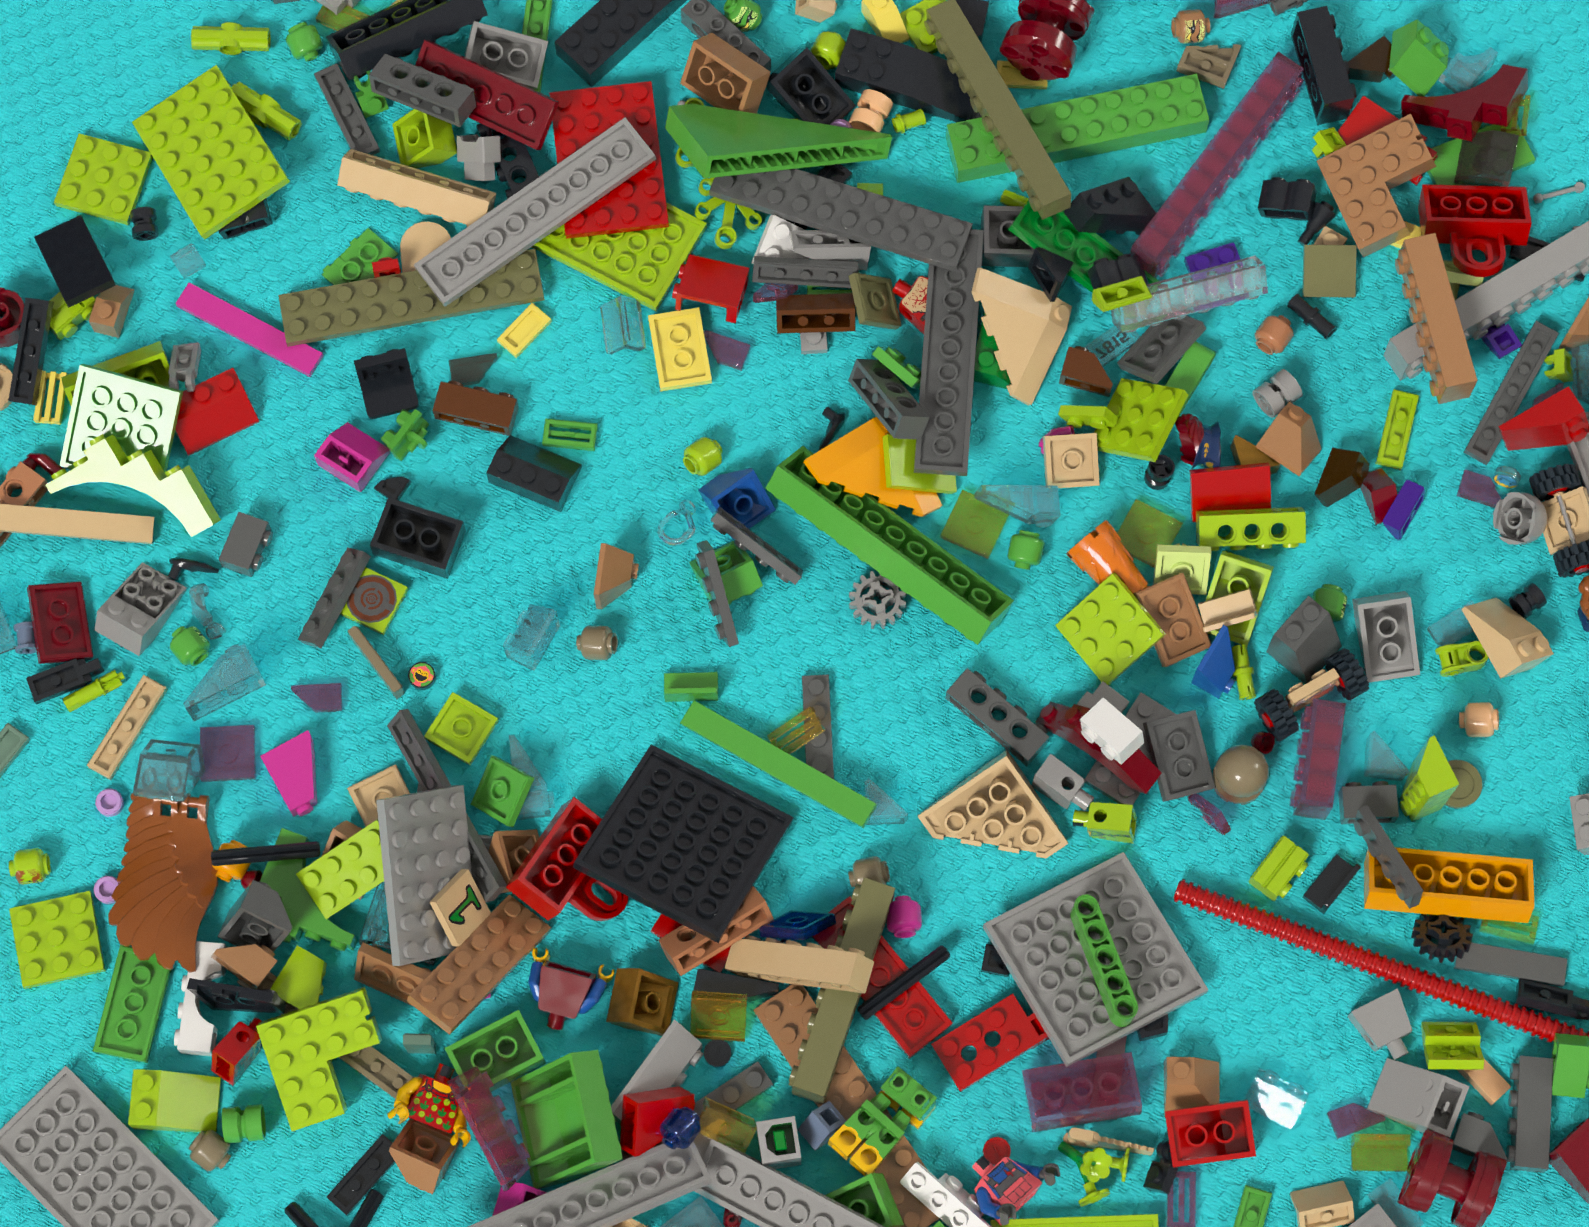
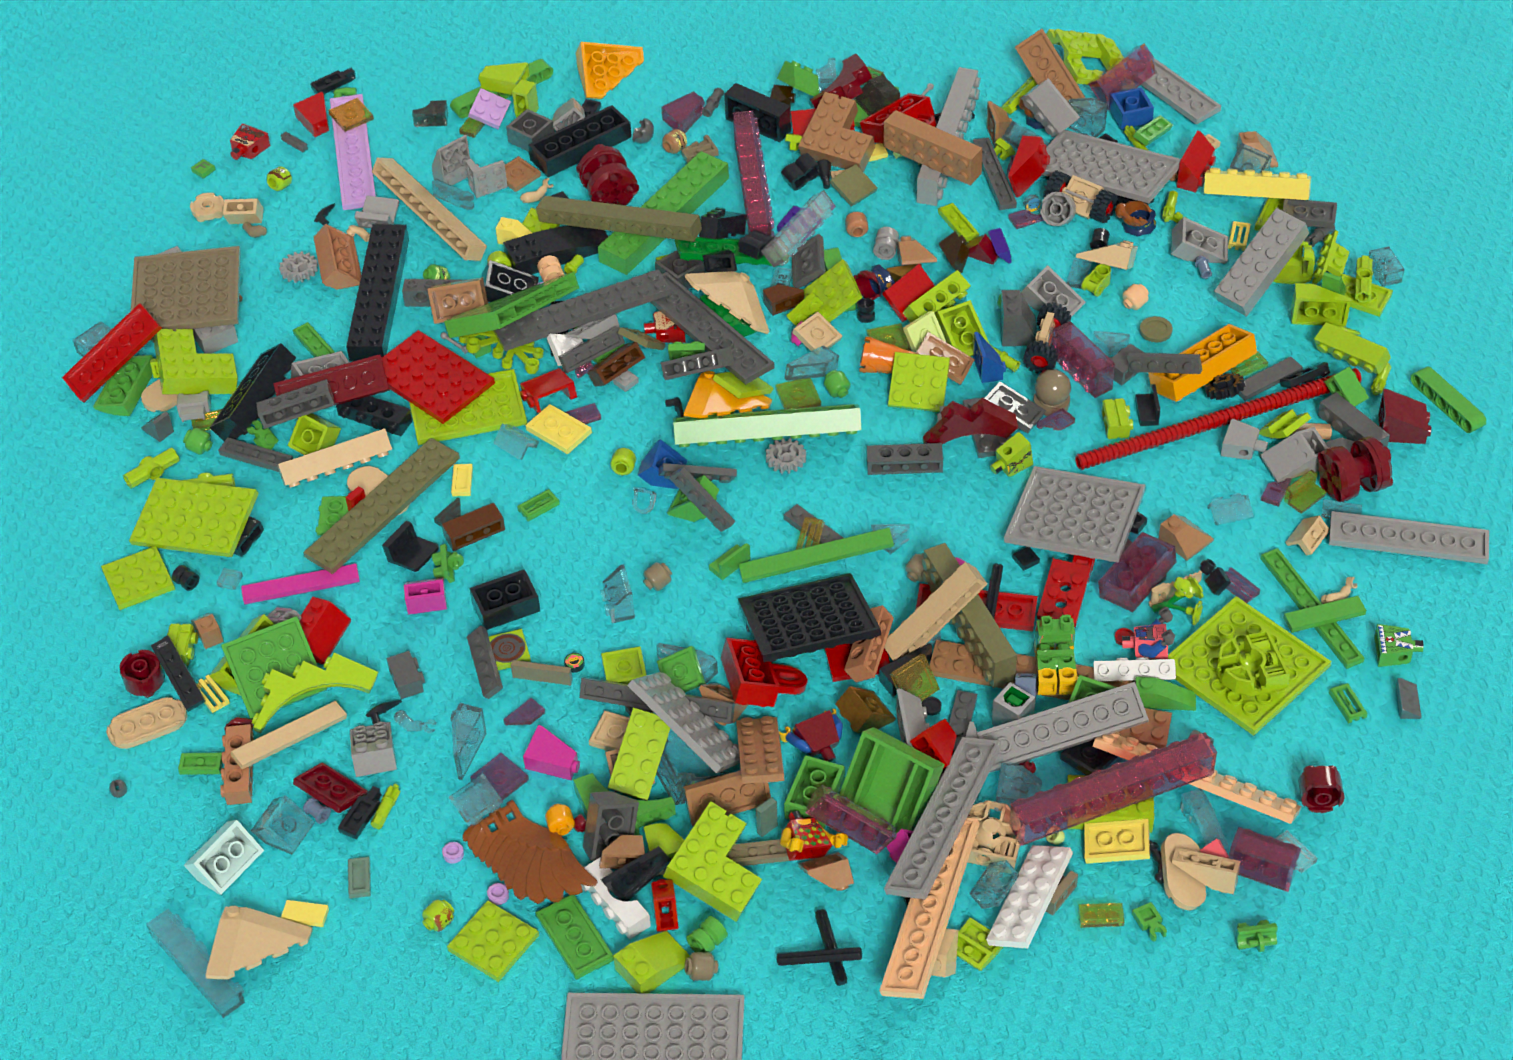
camera: 40 degrees left, 25 degrees down
(74, 261) = (161, 616): black tile -> none
(127, 727) = (425, 810): tan tile -> none
(189, 645) = (422, 741): bright green head -> none
(265, 853) = (578, 793): black axle -> none
(363, 1176) = (803, 910): black tile -> none
(393, 487) = (462, 595): black tile -> none
(460, 907) = (720, 729): tan tile -> none
(478, 156) = (356, 419): light grey piece -> none
(533, 472) = (538, 534): black slope -> none
(534, 212) = (415, 417): light grey plate -> none
(614, 574) = (631, 540): medium nougat slope -> none
(680, 1128) = (957, 731): clear blue head -> none
(726, 1125) = (976, 721): clear yellow panel -> none
(797, 925) = (910, 607): clear blue tile -> none
(995, 809) = (950, 494): tan slope -> none
(1054, 776) = (970, 458): light grey torso -> none
(1104, 973) = (1083, 503): bright green beam -> none
(1111, 731) = (976, 396): white brick -> none
(1121, 294) = (768, 240): lime slope -> none
(1210, 1133) = (1221, 537): red slope -> none
(1227, 610) = (965, 333): tan panel -> none
(1311, 316) = (866, 207): black pin -> none
(1428, 782) = (1145, 318): lime slope -> none

